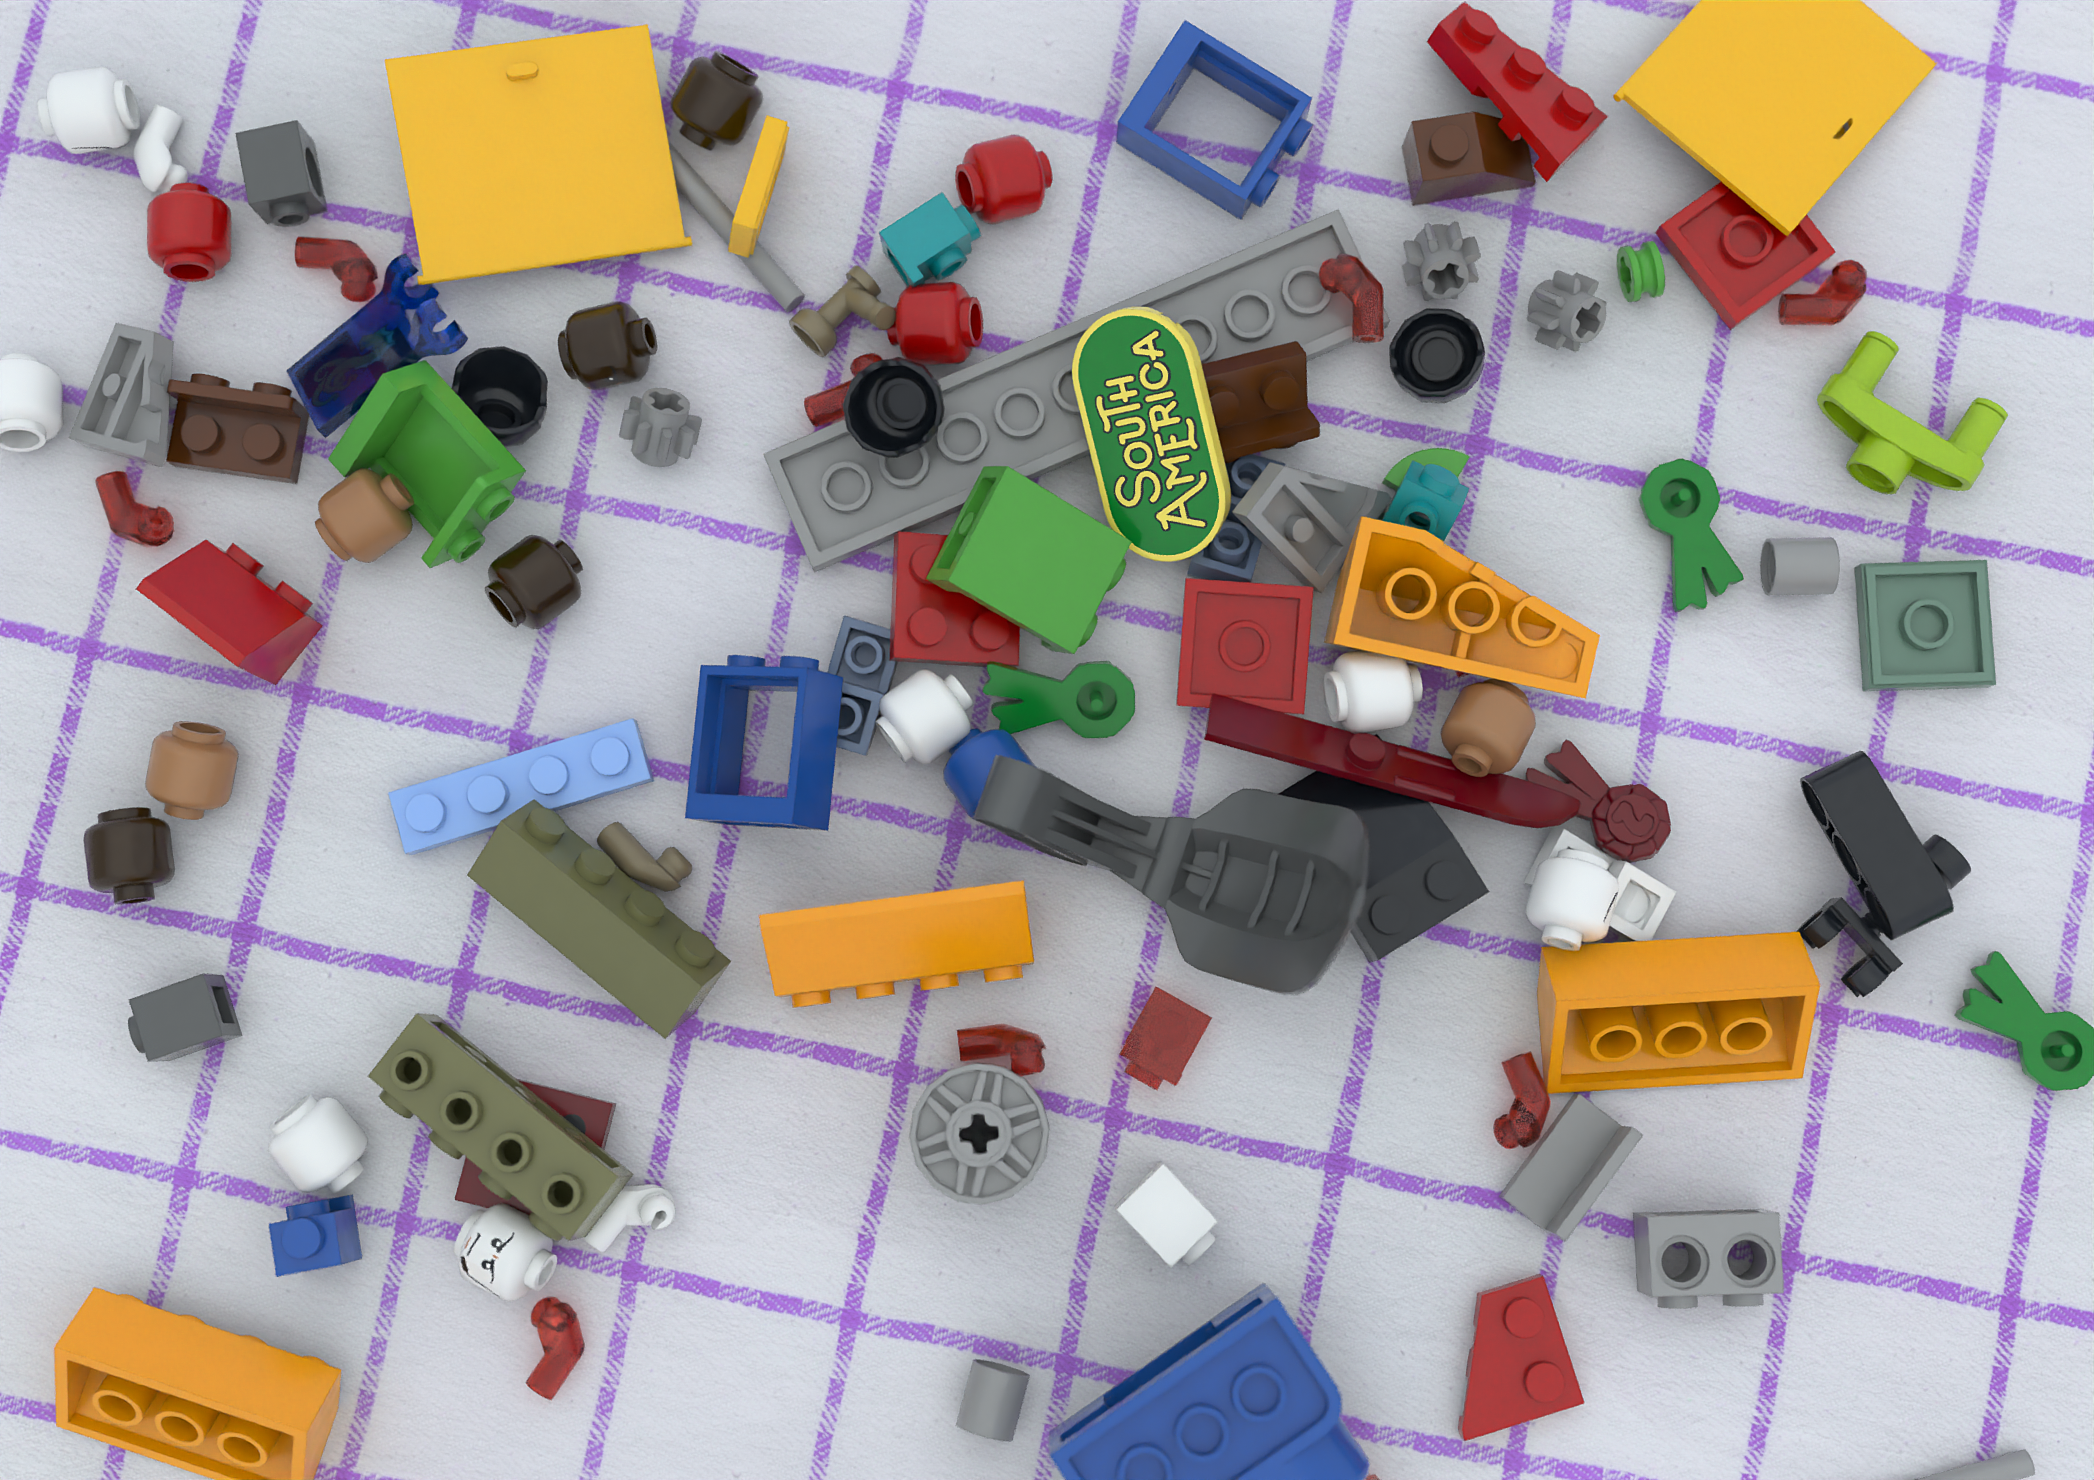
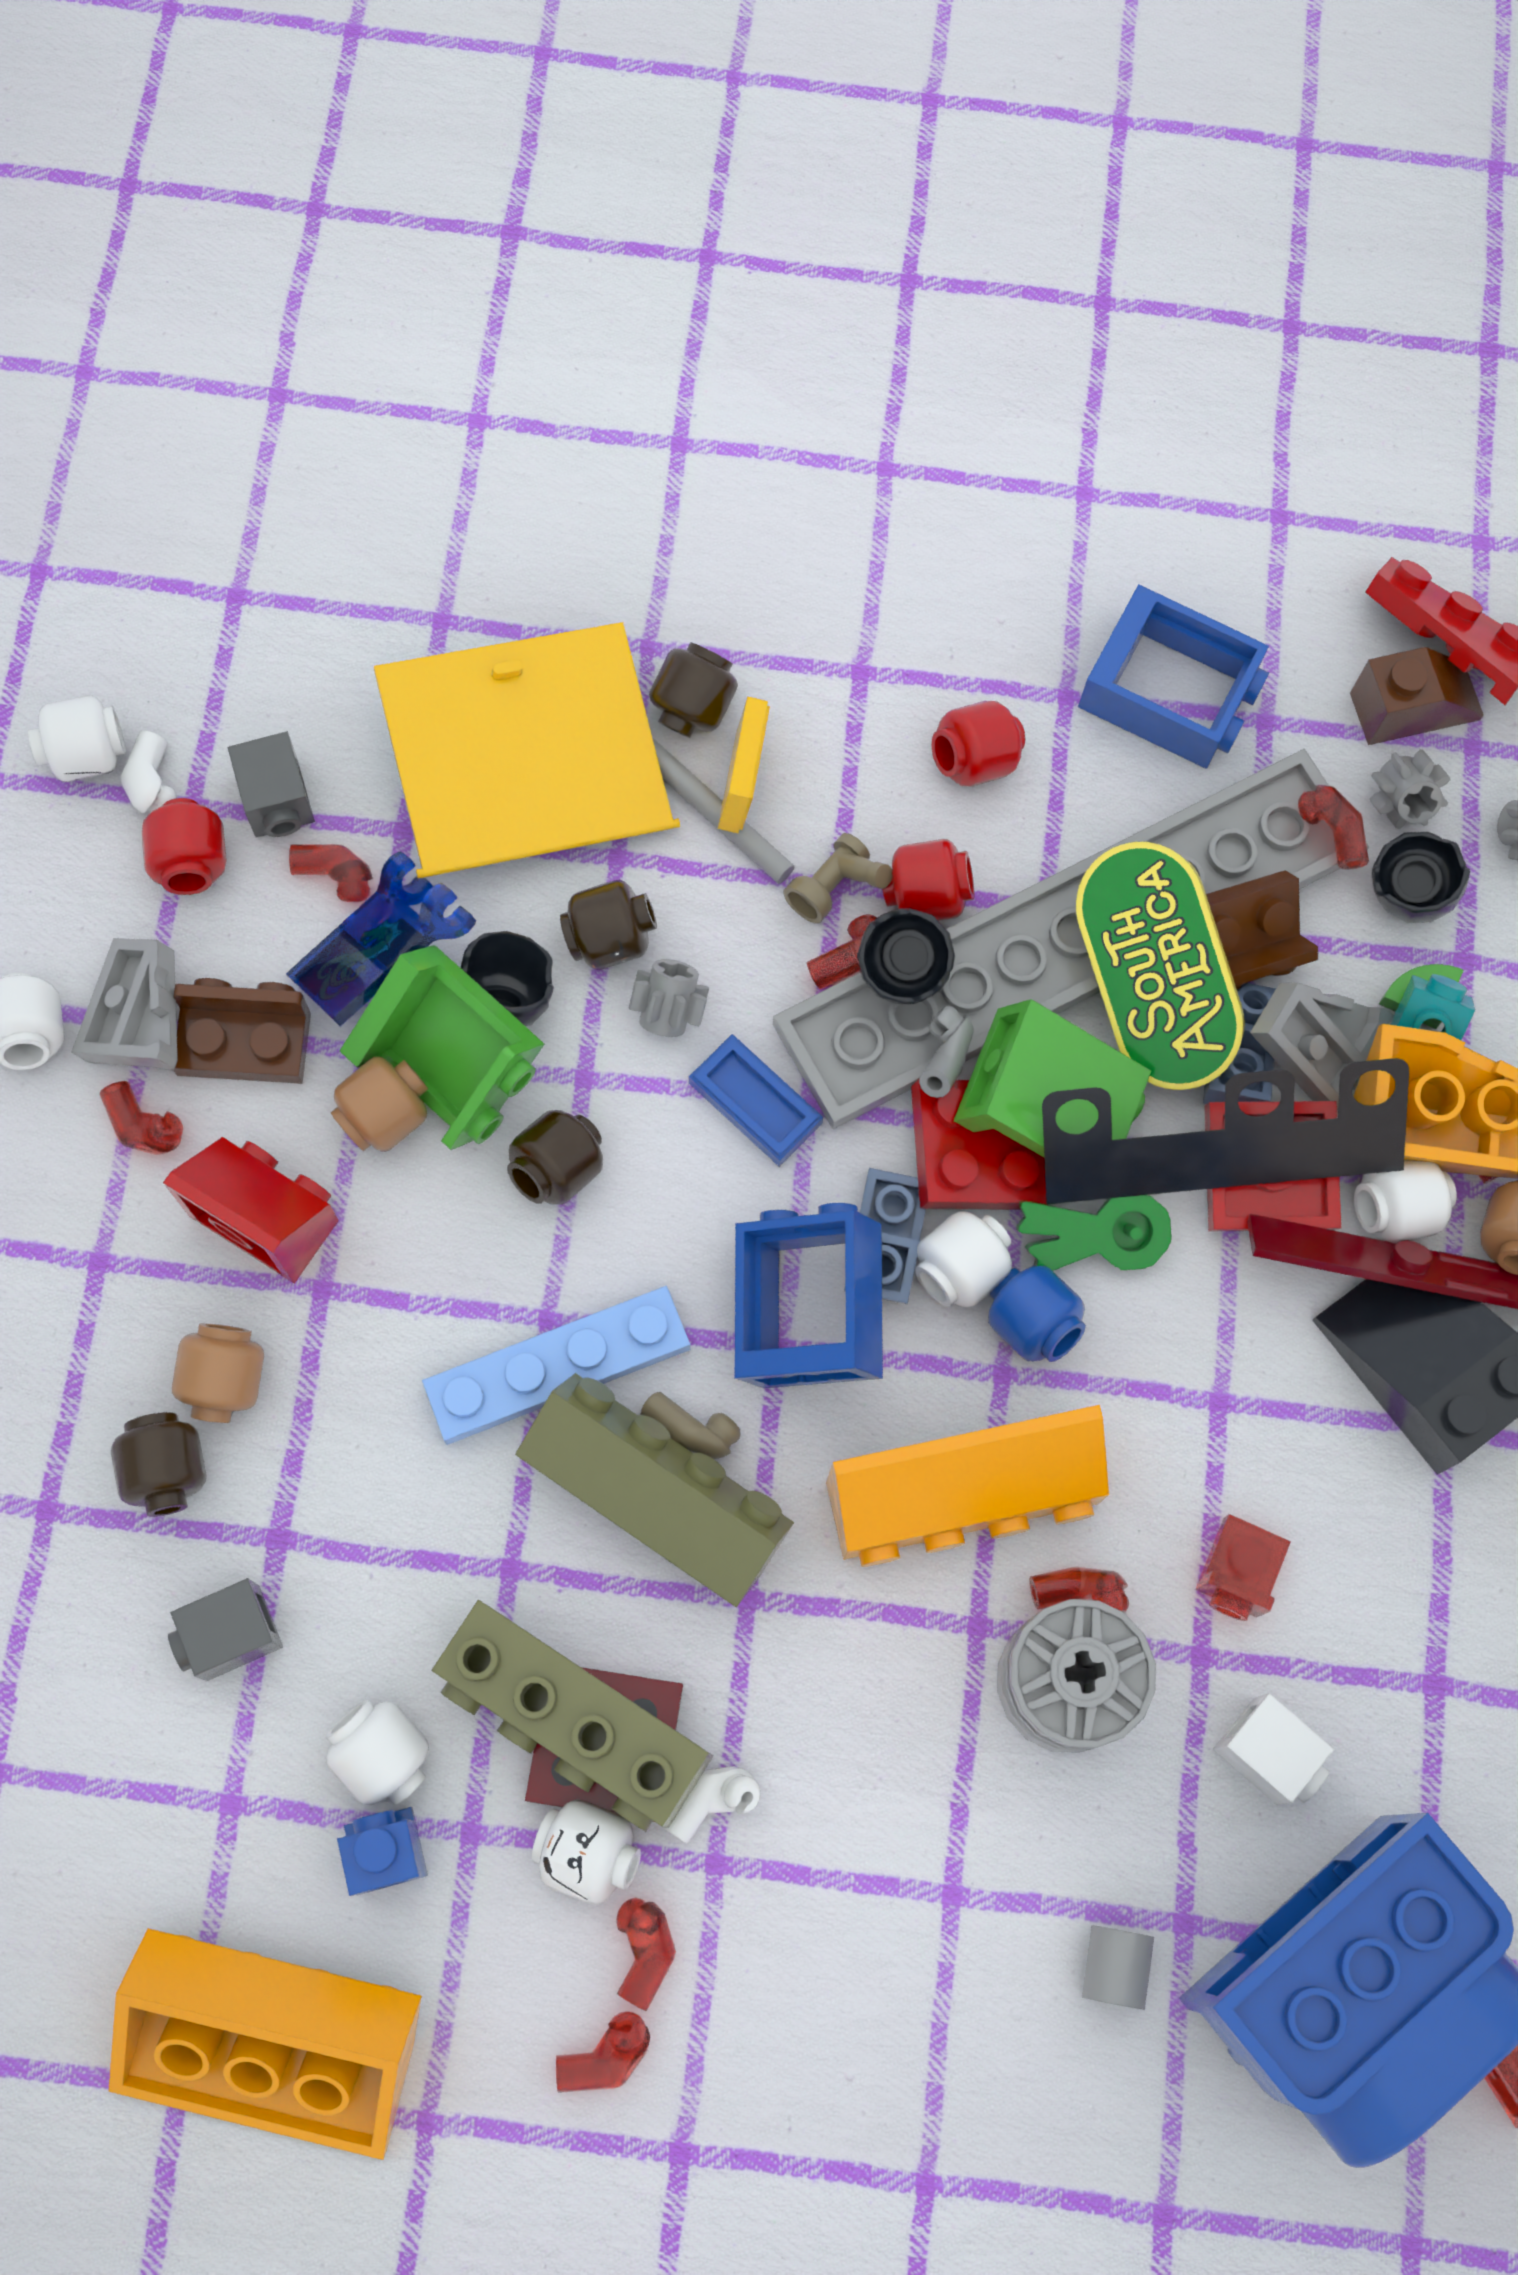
camera: 10 degrees left, 10 degrees down
(514, 1442) = (611, 2060): none -> clear red arm
(741, 536) = (755, 1100): none -> blue tile
(930, 241) = (913, 805): teal brick -> none
(930, 513) = (950, 1056): none -> light grey arm
(1200, 637) = (1242, 1154): none -> black piece
(1249, 887) = (1312, 1401): dark grey piece -> none

